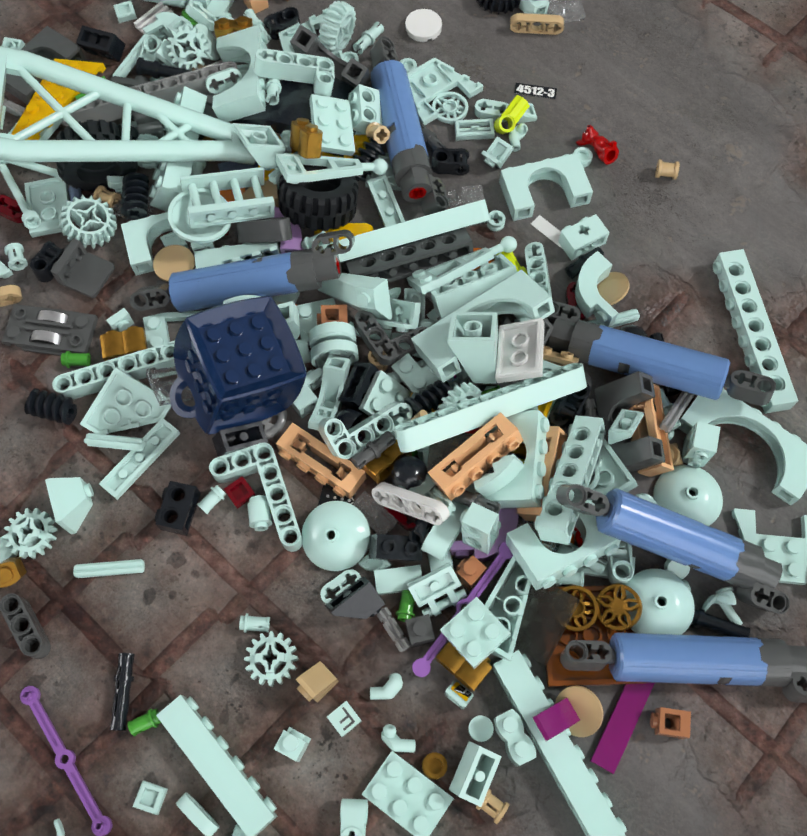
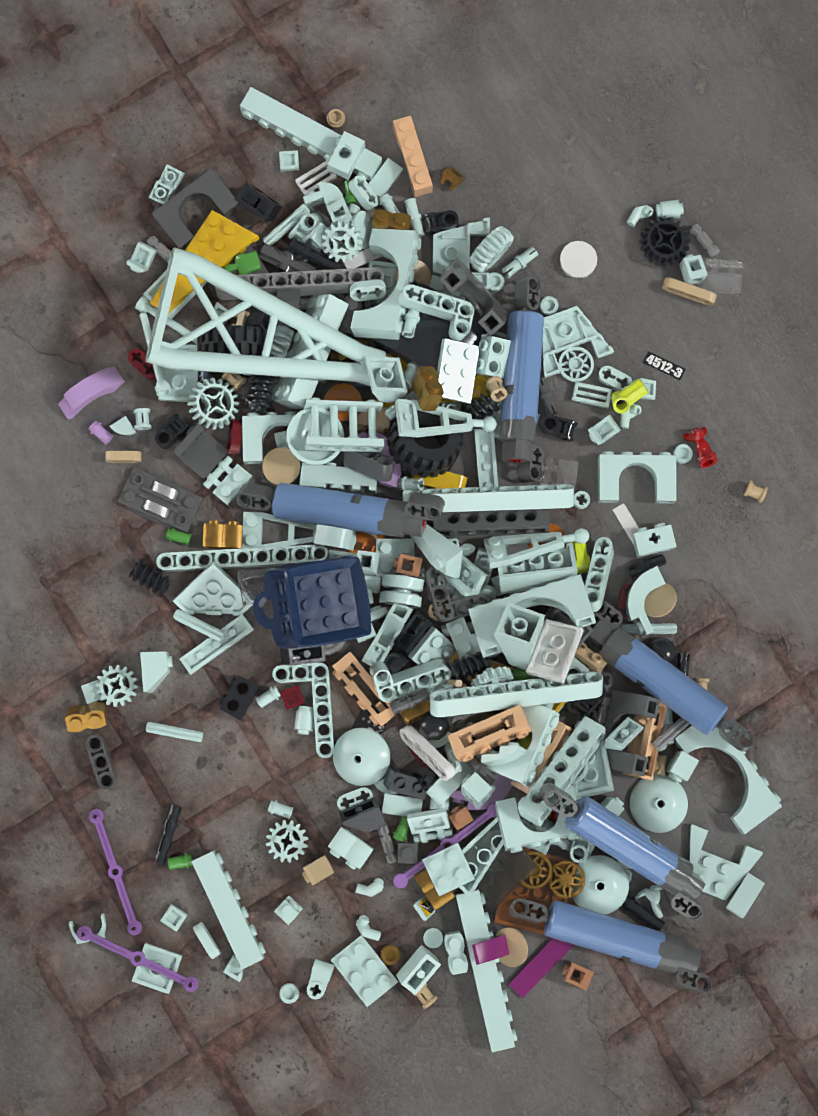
camera: 10 degrees right, 15 degrees up
(117, 248) = (234, 437): none -> dark red beam
(120, 321) = (223, 512): light aqua plate -> none
(122, 295) = (233, 482): none -> light aqua plate
(344, 719) = (331, 901): light aqua tile -> none
(350, 645) = (350, 848): none -> light aqua brick
(770, 356) = (780, 605): light aqua brick -> none

